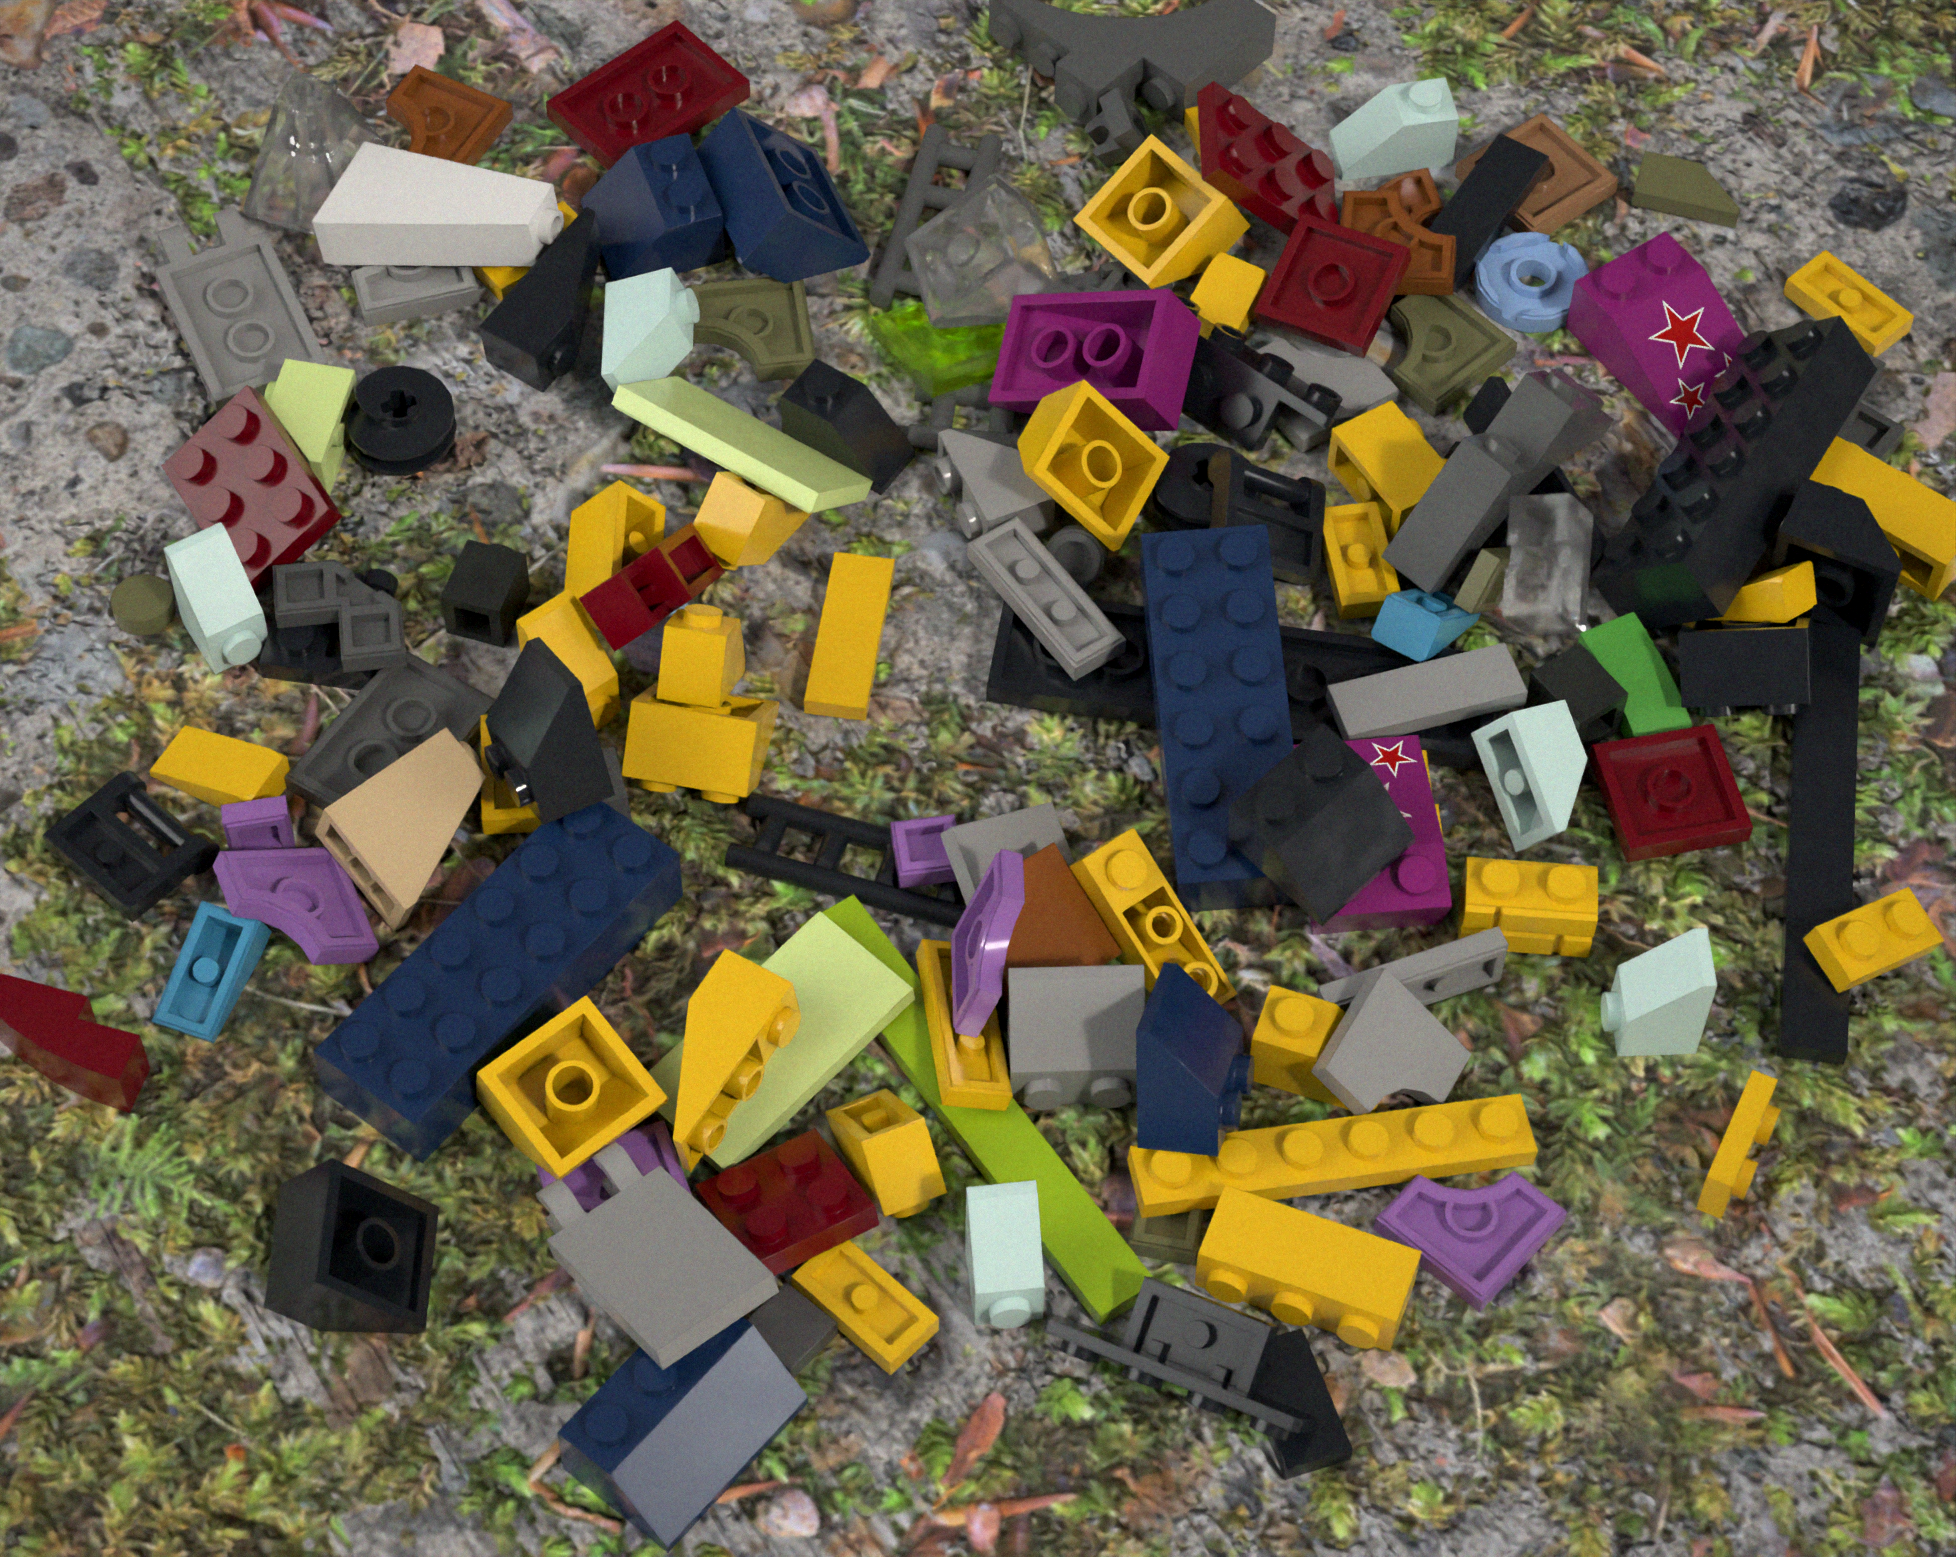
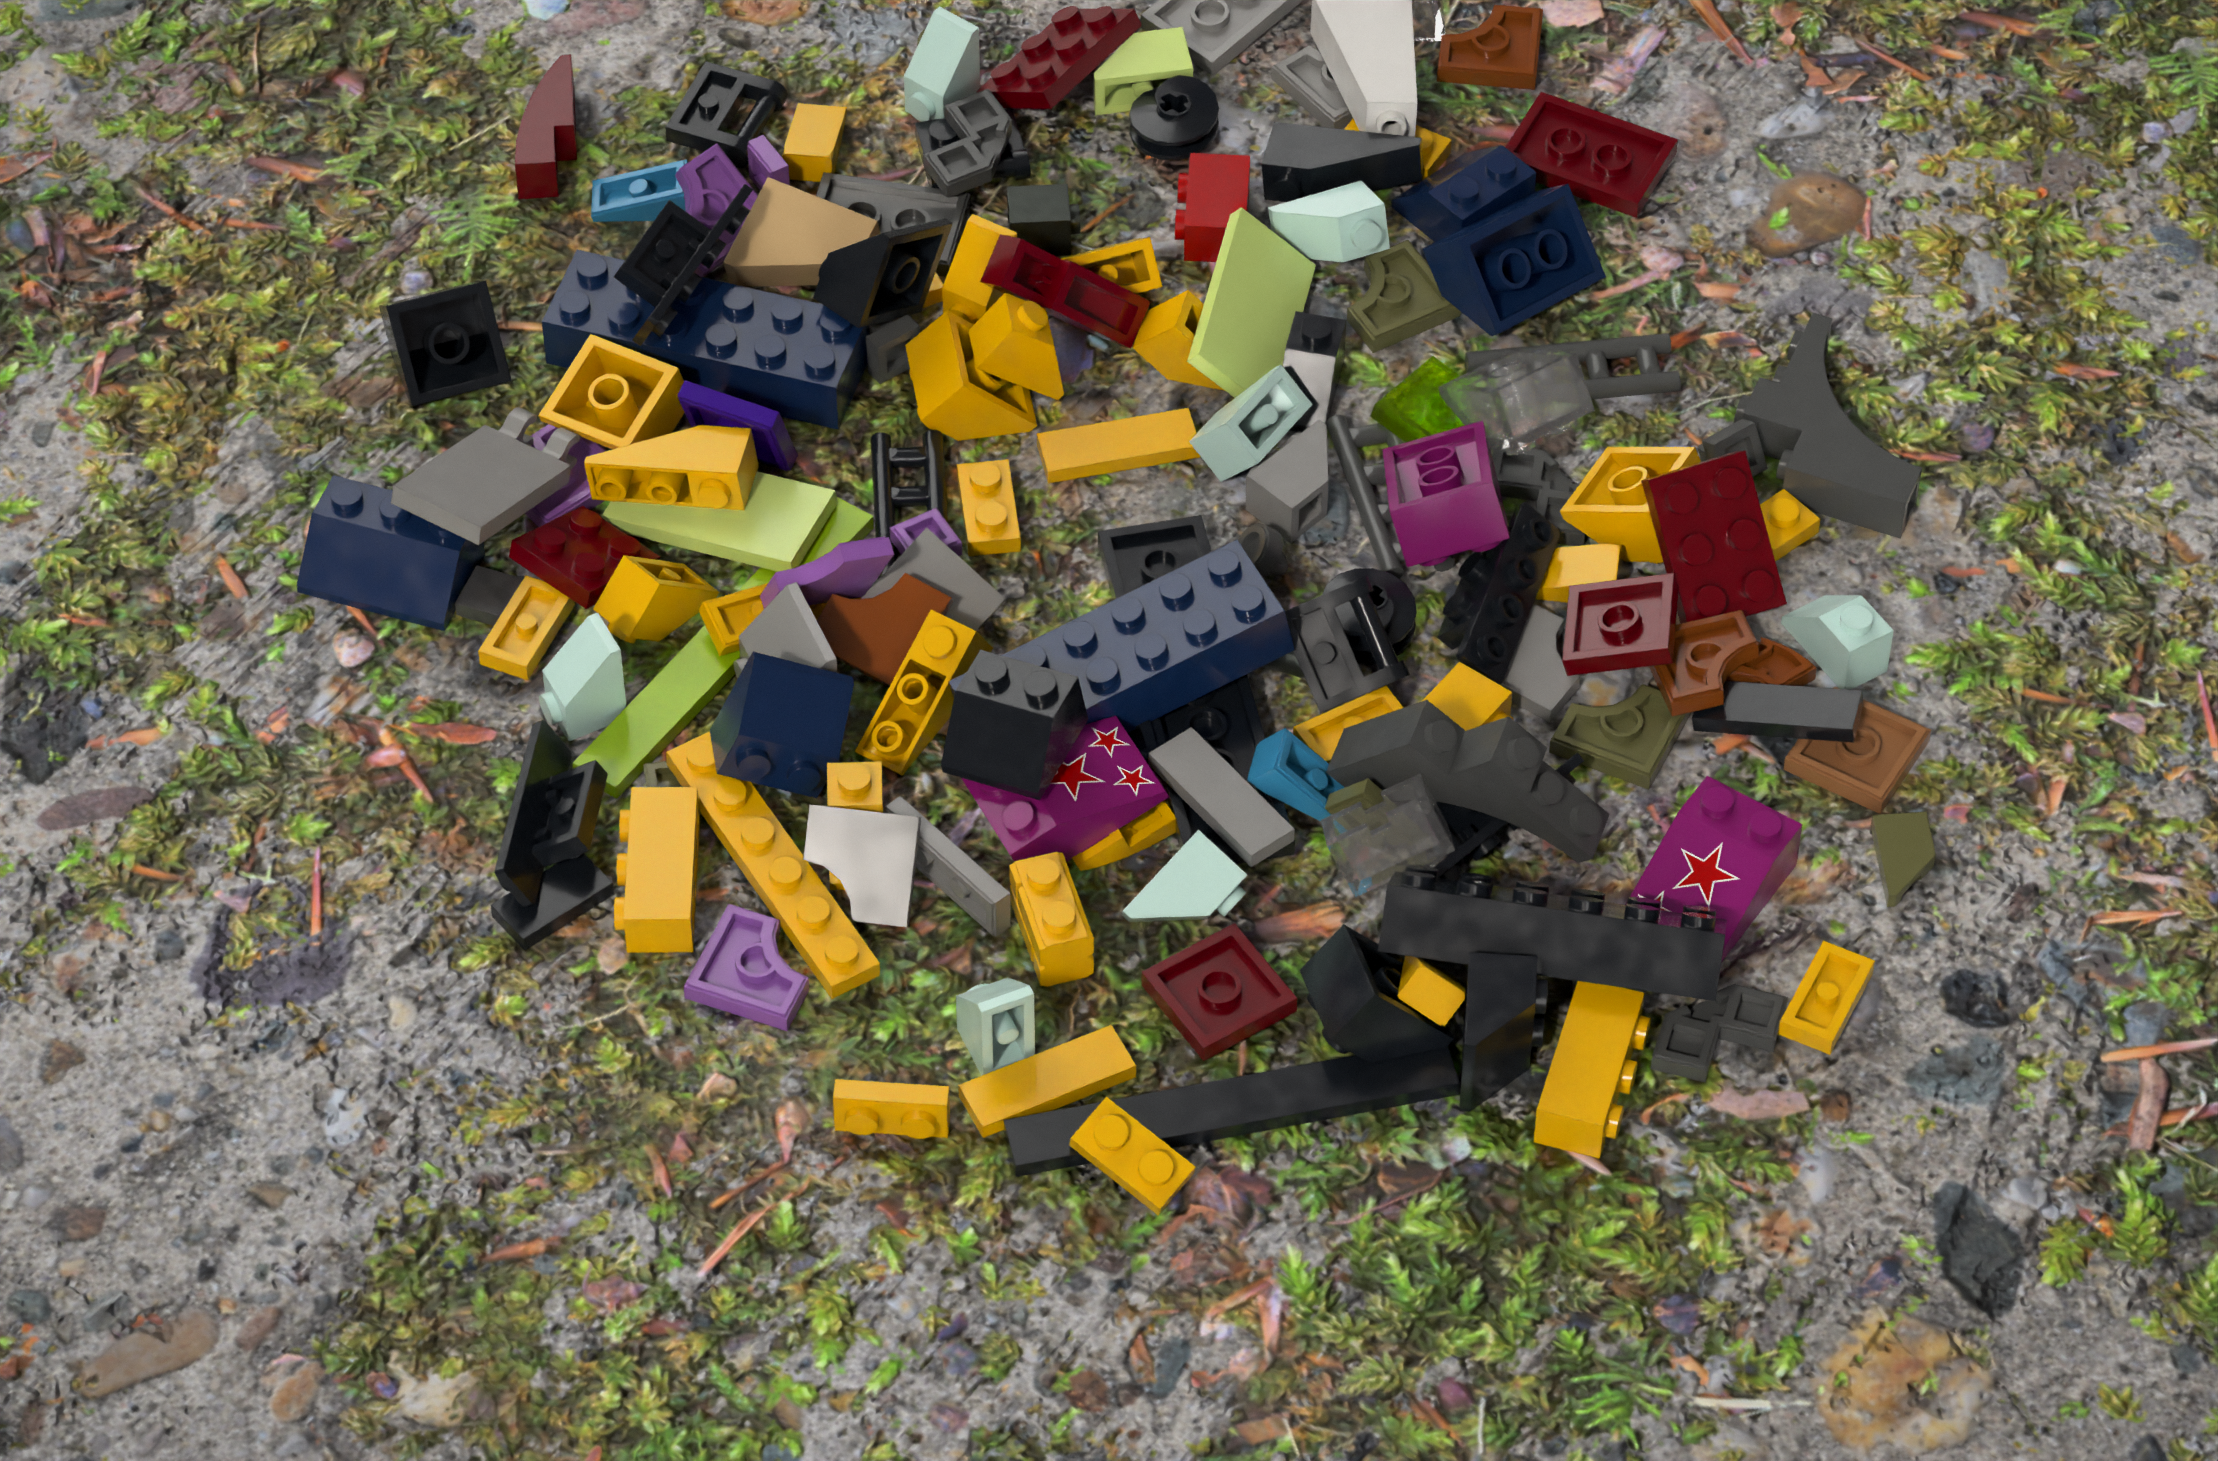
camera: 70 degrees right, 5 degrees down
(427, 935) = (668, 255): none -> black bracket
(555, 428) = (1211, 193): none -> red brick
(677, 973) = (715, 408): none -> dark purple plate
(881, 783) = (988, 507): none -> yellow plate
(910, 499) = (1251, 424): none -> light aqua slope
(1046, 598) = (1200, 528): light grey tile -> none
(1091, 460) = (1322, 514): yellow slope -> none
(1523, 306) = (1749, 754): light blue tile -> none
(1589, 690) = (1278, 903): pearl dark grey brick -> none
(1637, 666) = (1315, 928): bright green slope -> none
(1740, 1019) = (1047, 1080): none -> yellow tile

